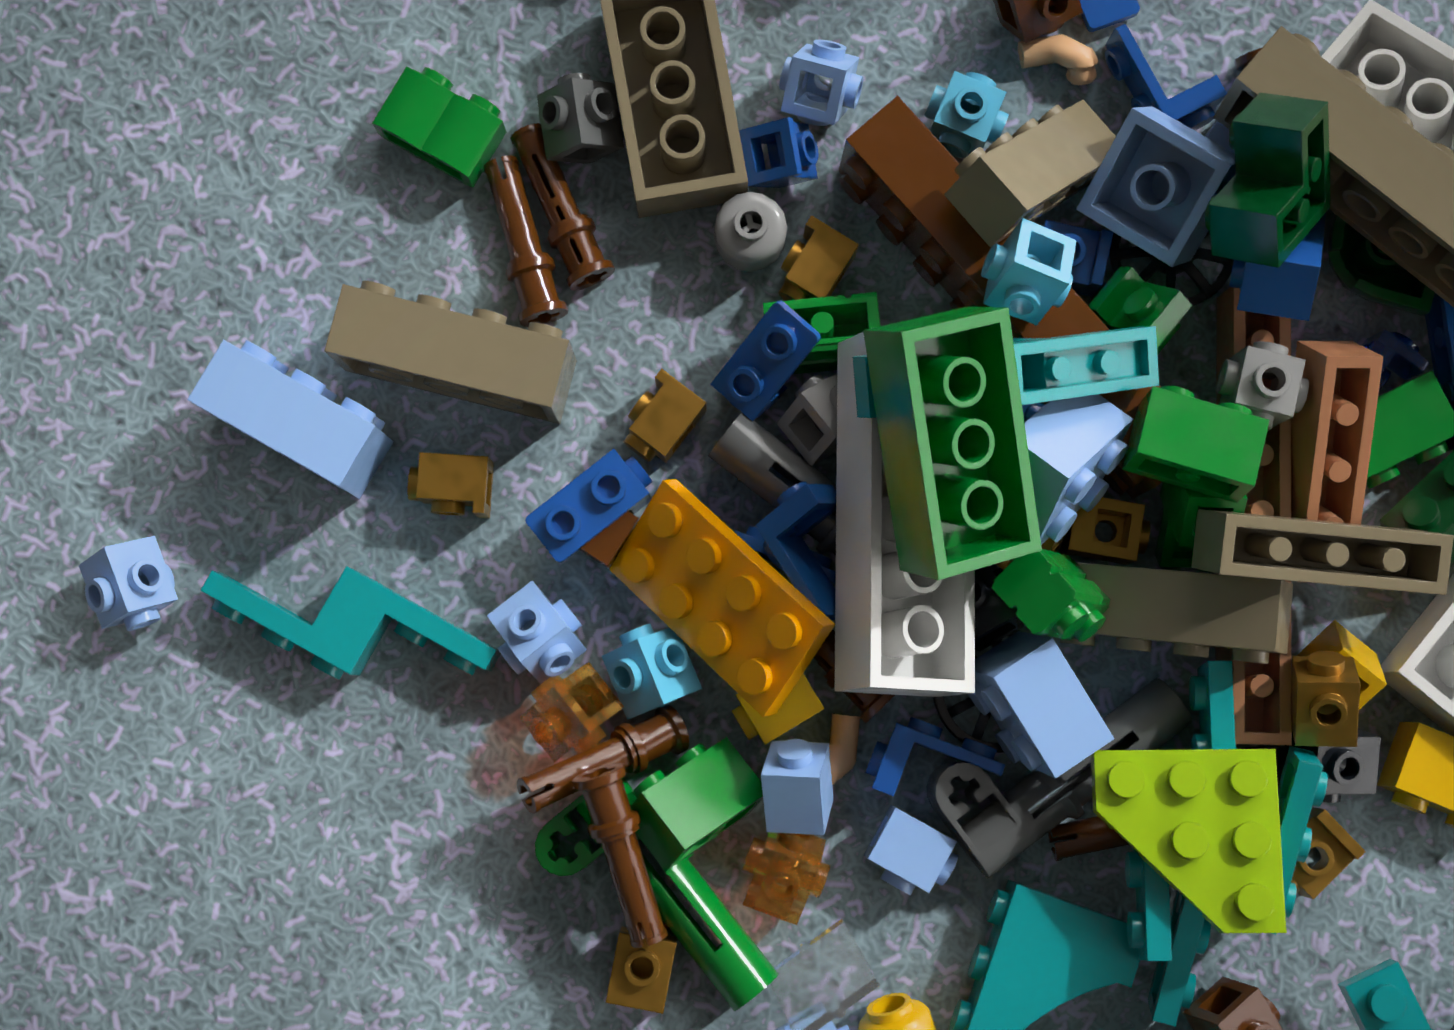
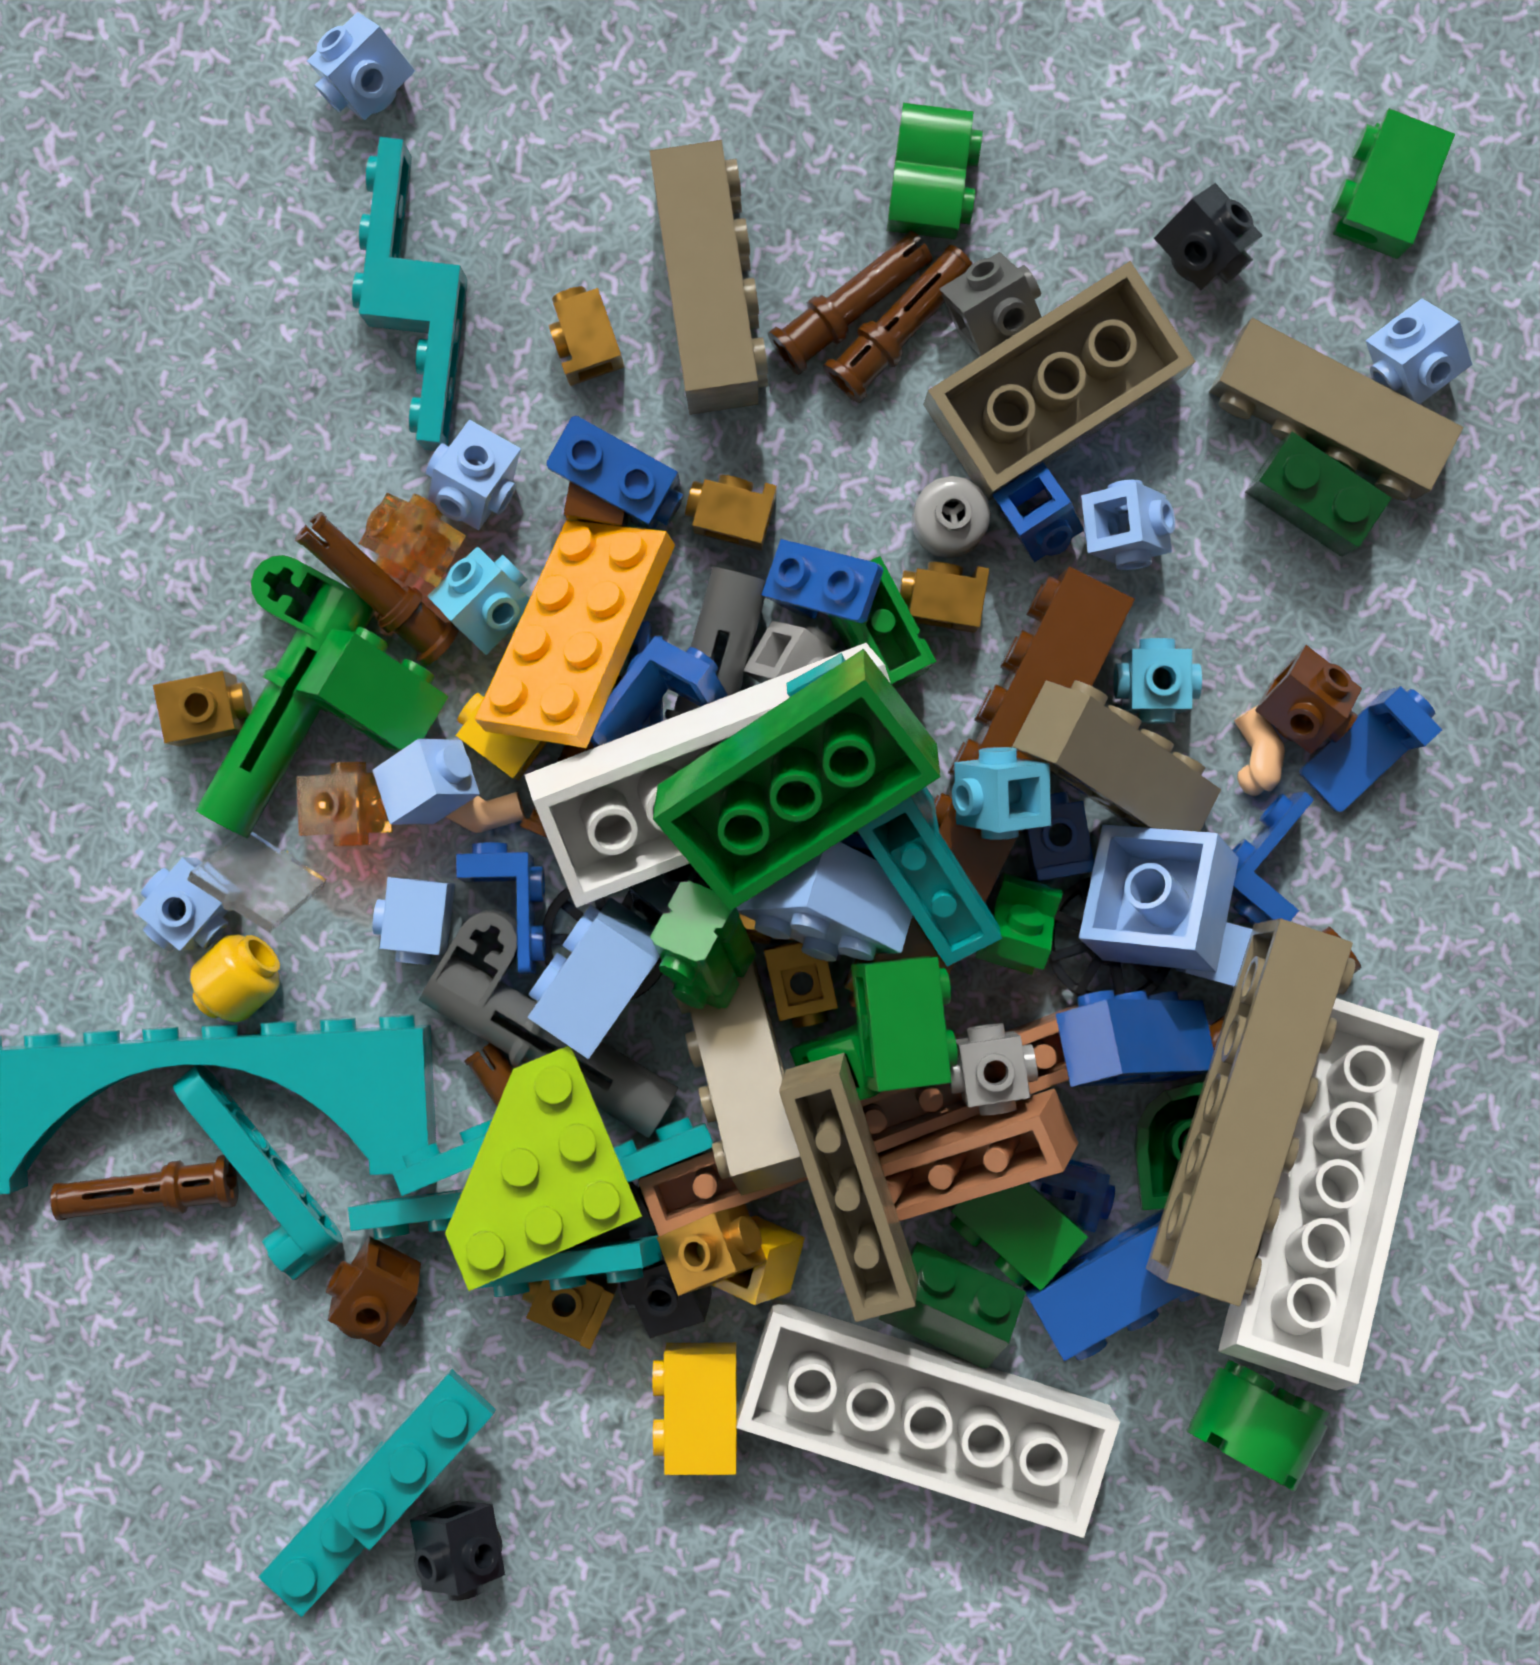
camera: 70 degrees right, 5 degrees up
(293, 415) = (580, 151): light blue brick -> none
(615, 829) = (311, 622): reddish brown pin -> none
(1277, 183) = (1191, 1001): dark green brick -> none

